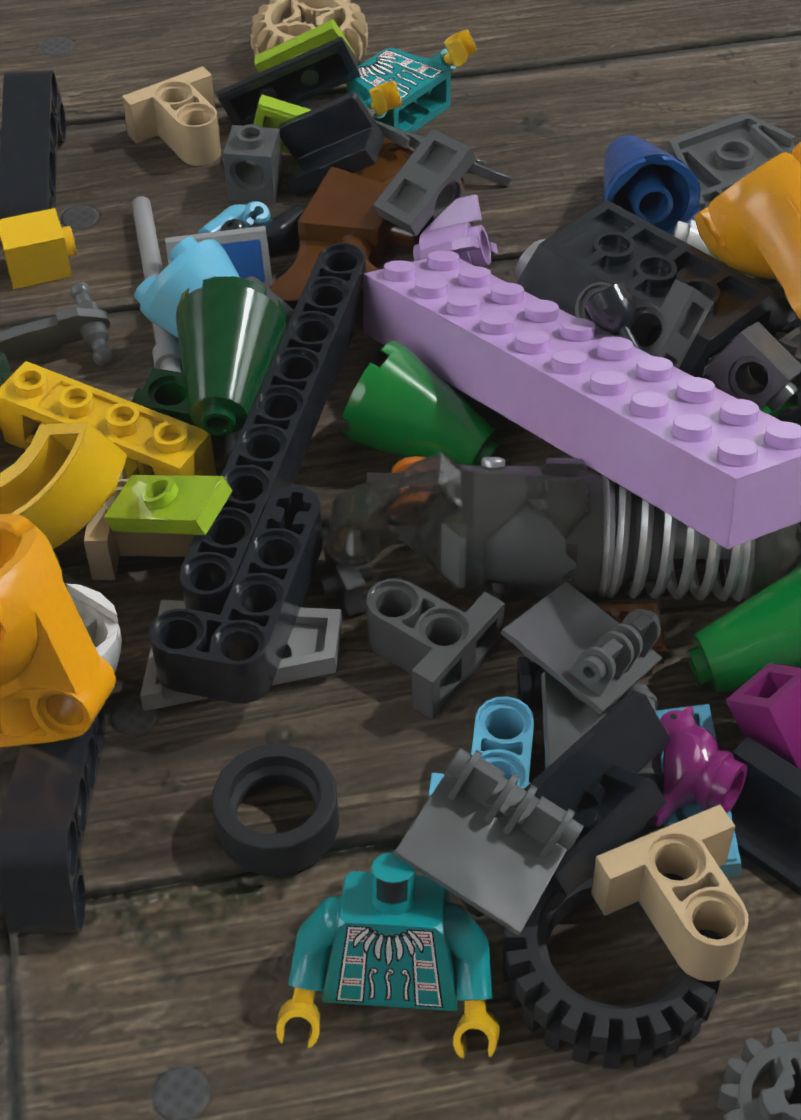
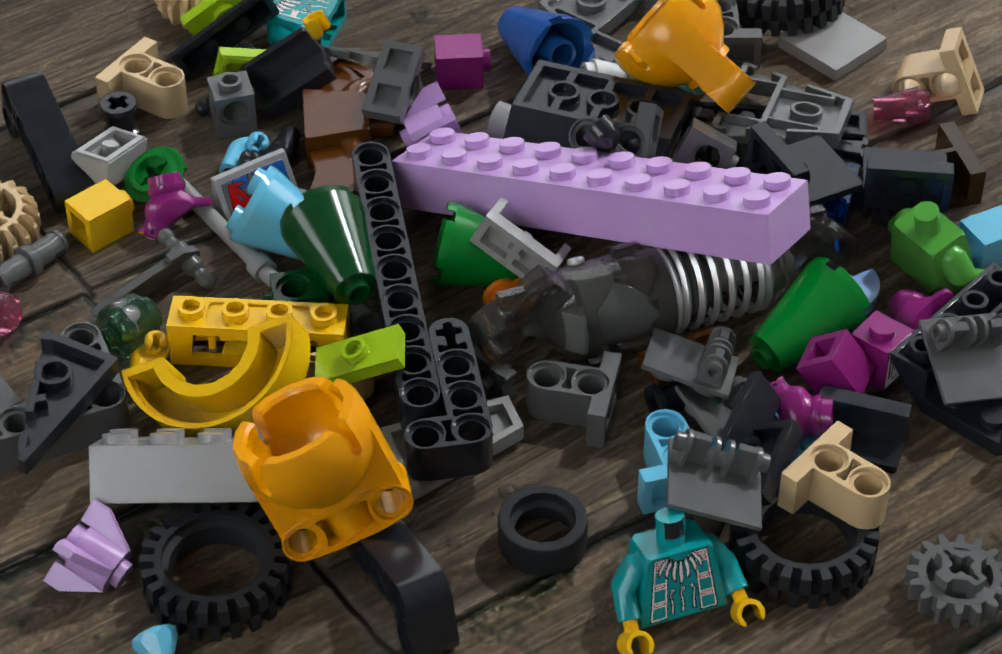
camera: 25 degrees left, 5 degrees down
(85, 186) = (110, 154): none -> light grey slope
(108, 229) = (156, 160): none -> green gear
(108, 254) = (167, 203): none -> magenta animal
(129, 148) = (119, 111): none -> black bush
(442, 416) = (513, 246): none -> light grey hinge
(537, 183) = (460, 61): none -> magenta brick

